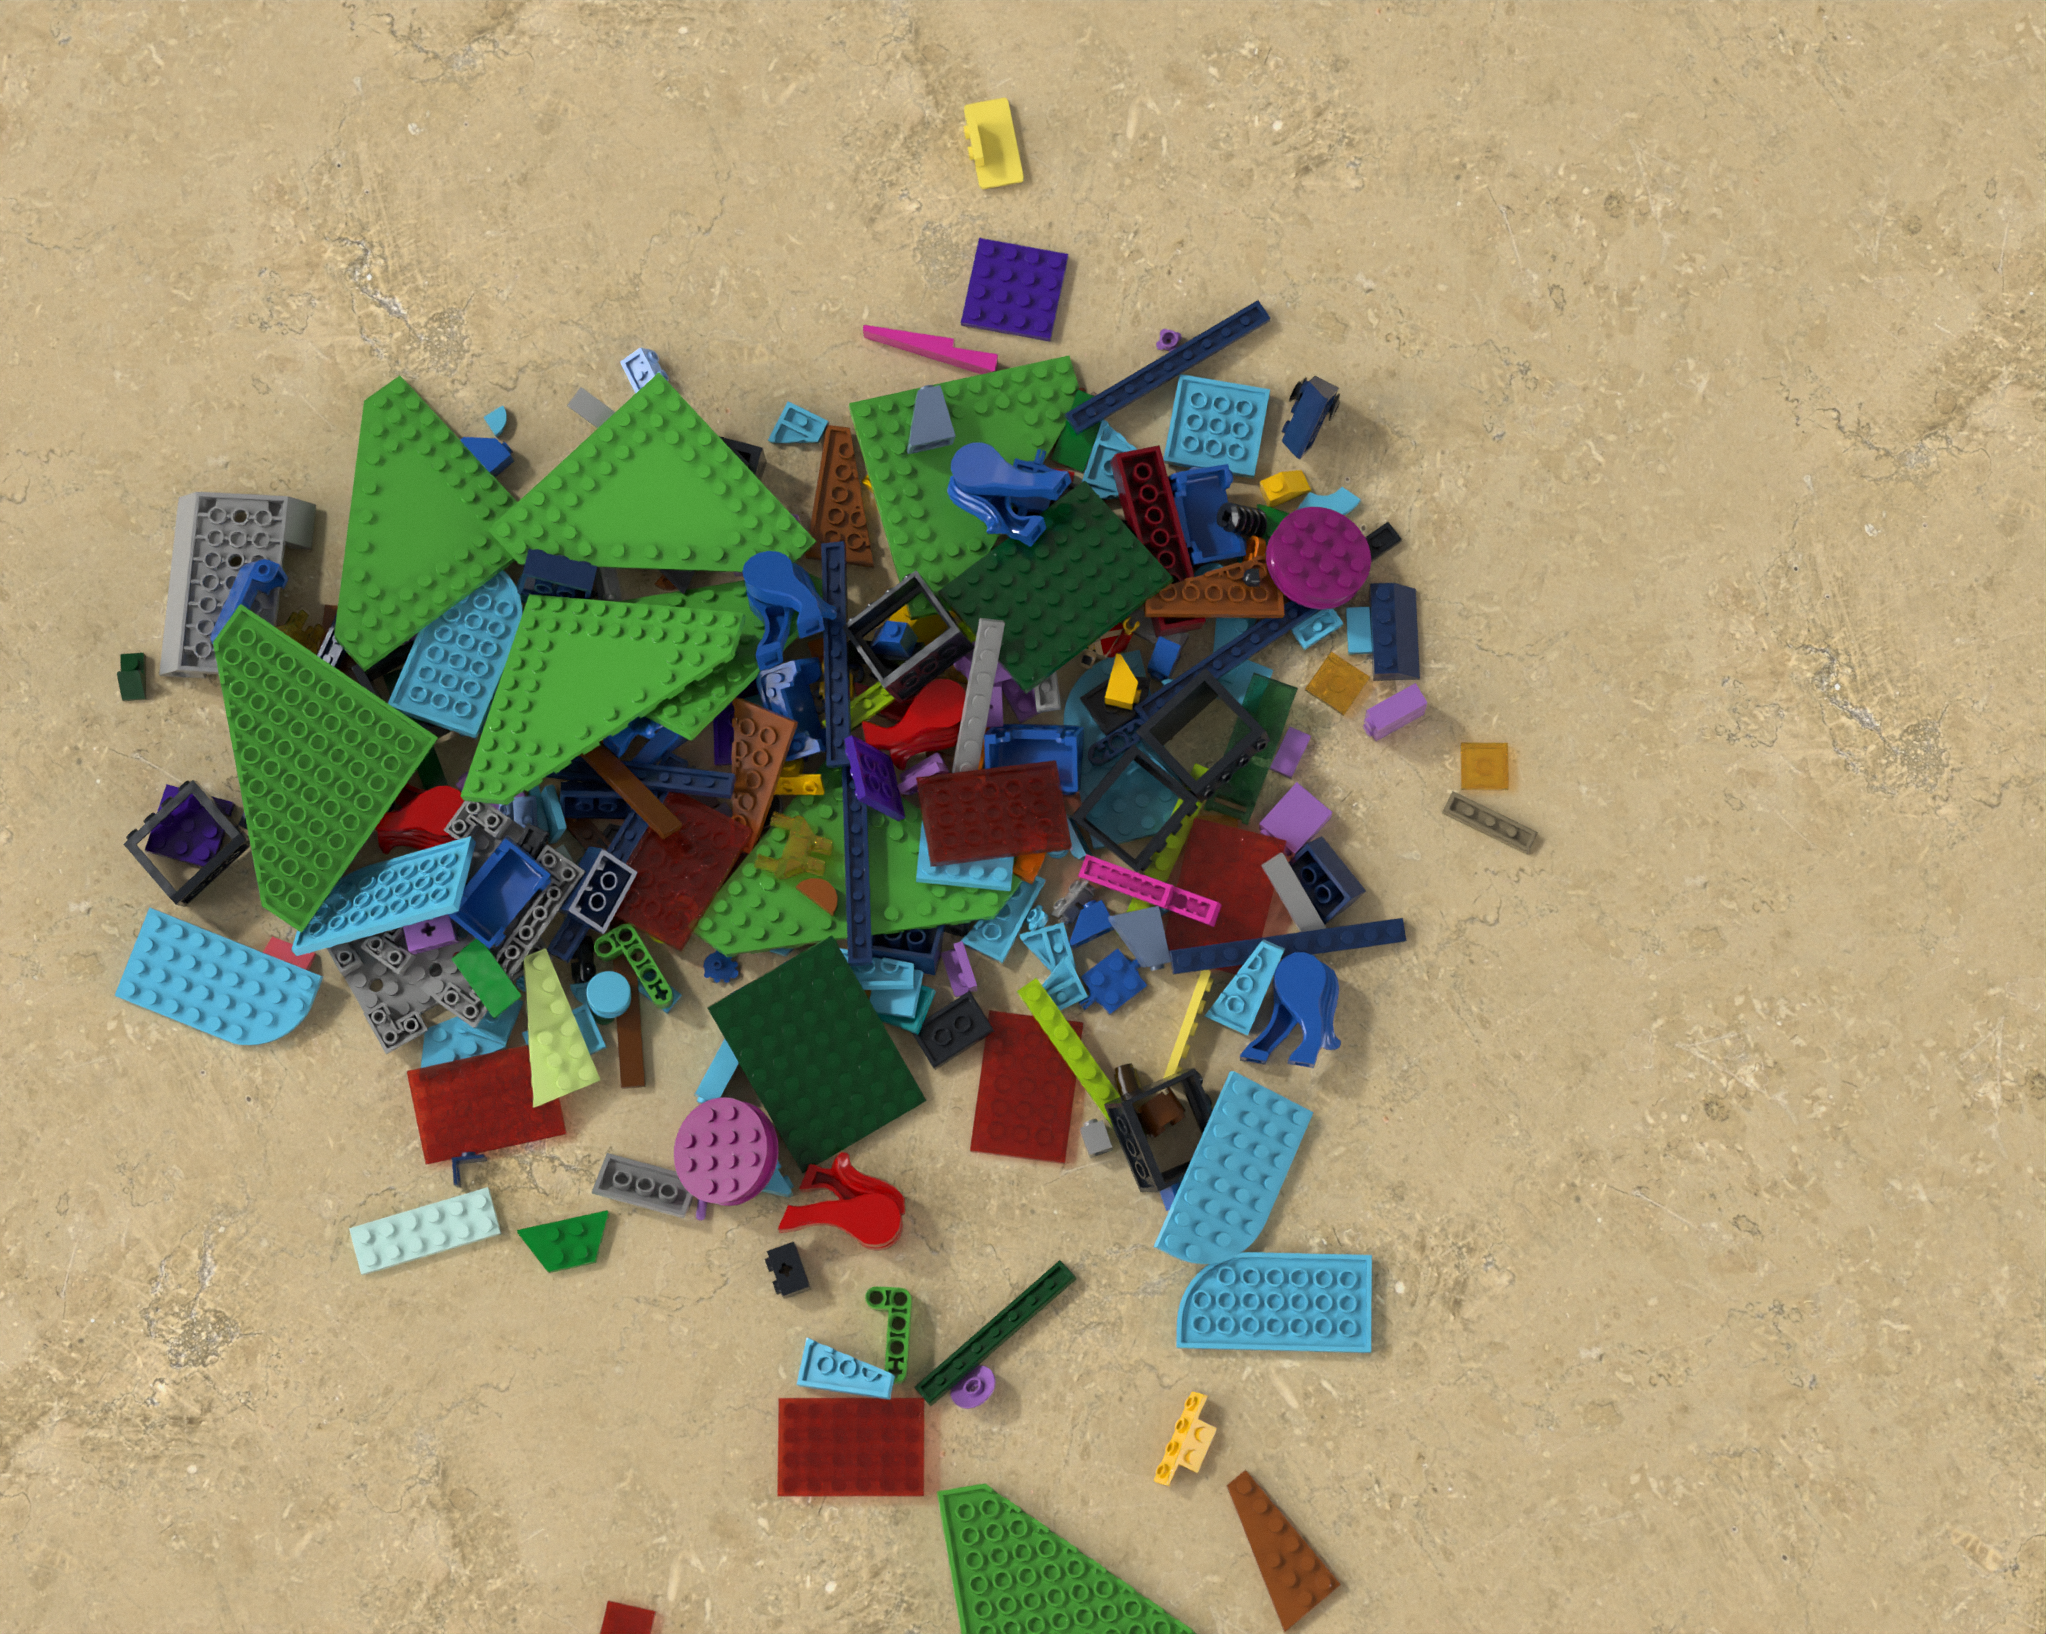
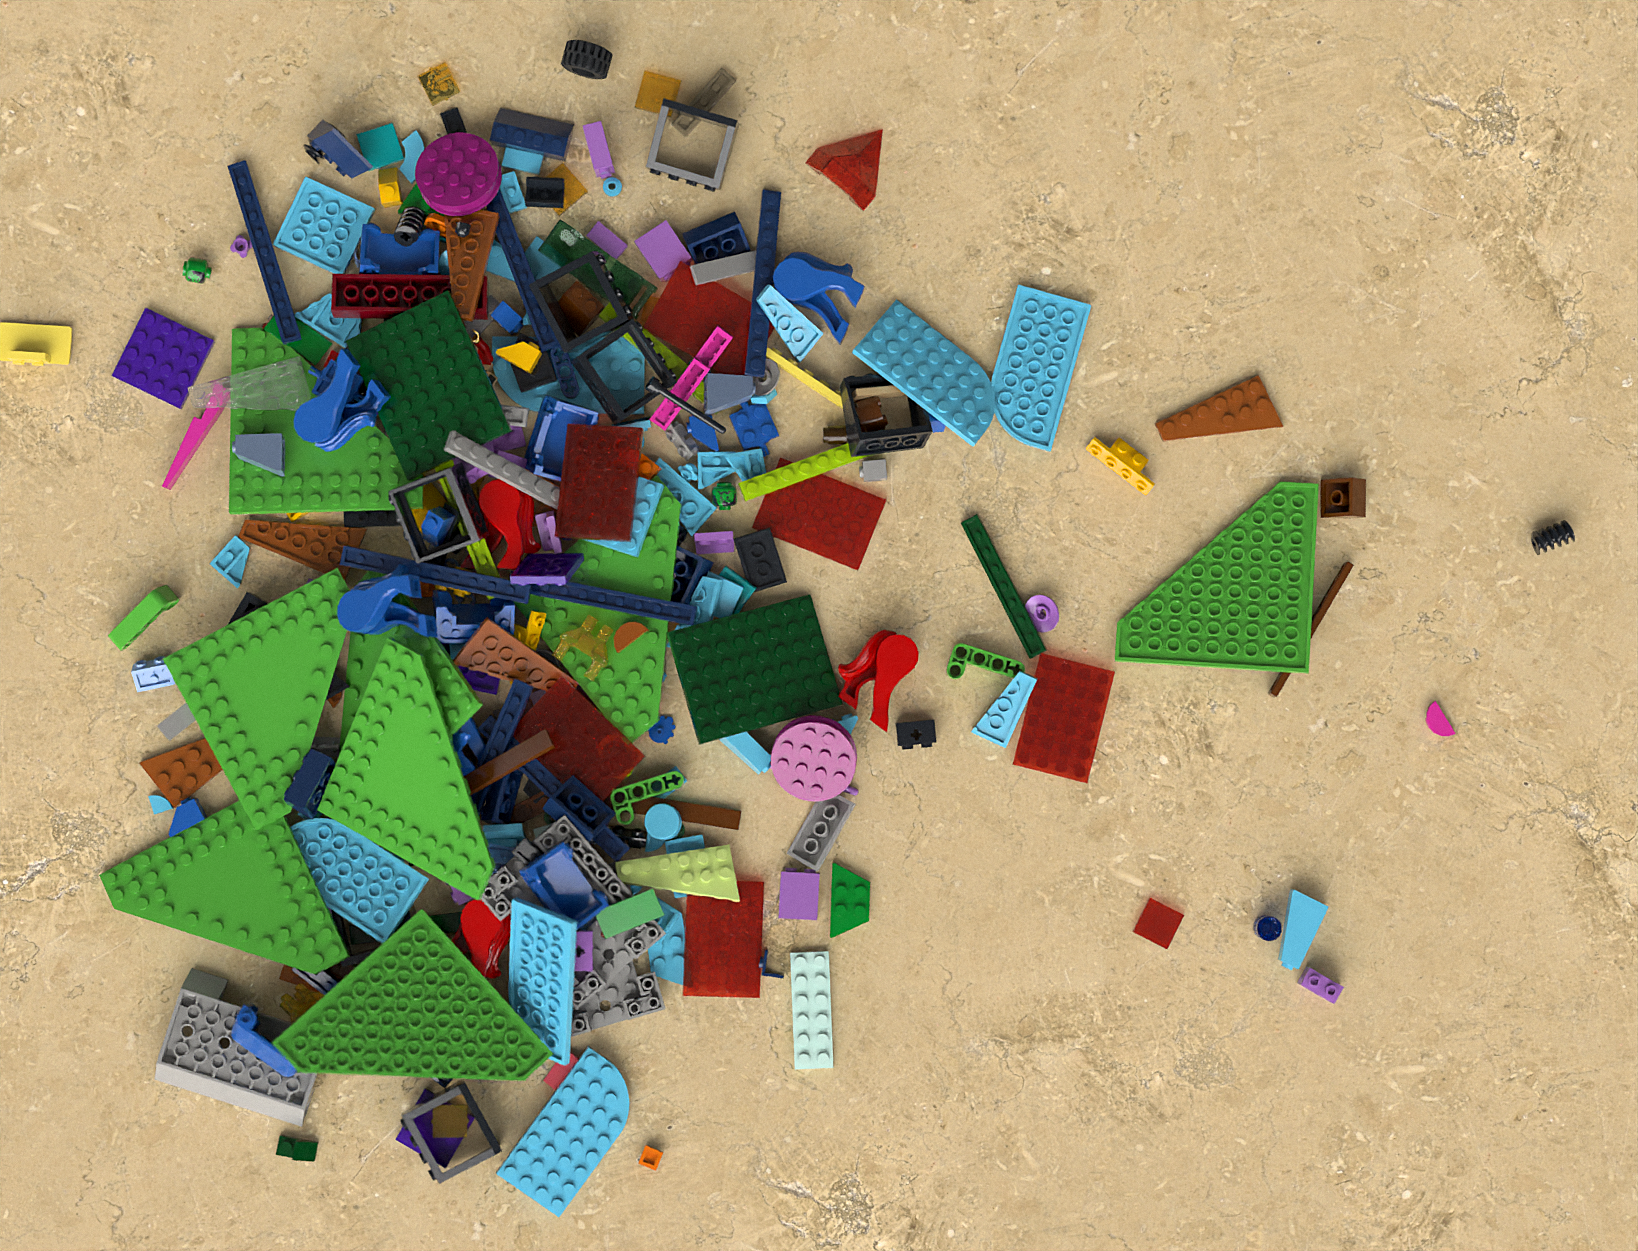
camera: 85 degrees left, 10 degrees up
(200, 839) = (450, 1121): none -> clear yellow piece
(207, 1084) = (650, 1157): none -> orange plate
(539, 433) = (183, 770): none -> dark orange wing
(559, 1179) = (799, 894): none -> medium lavender brick
(709, 344) = (142, 616): none -> bright green beam
(884, 563) = (373, 518): none -> black plate
(1007, 409) = (262, 388): none -> clear wing
(1019, 967) = (724, 495): none -> green head
(1124, 847) = (655, 386): none -> black piece
(1126, 298) = (196, 270): none -> green head
(1150, 985) = (763, 399): none -> medium azure tile
(1173, 984) = (766, 384): none -> light grey dish
(1191, 1119) = (880, 391): none -> tan tile
(1200, 740) = (580, 308): none -> reddish brown slope
(1326, 664) = (545, 192): none -> black bracket
(1329, 465) = (380, 146): none -> teal tile
(1353, 747) = (614, 192): none -> medium azure plate
(1423, 512) = (439, 84): none -> clear yellow piece
(1439, 860) = (691, 178): none -> windscreen
(1461, 1017) = (851, 166): none -> clear red wedge
(1498, 669) = (586, 59): none -> black tyre

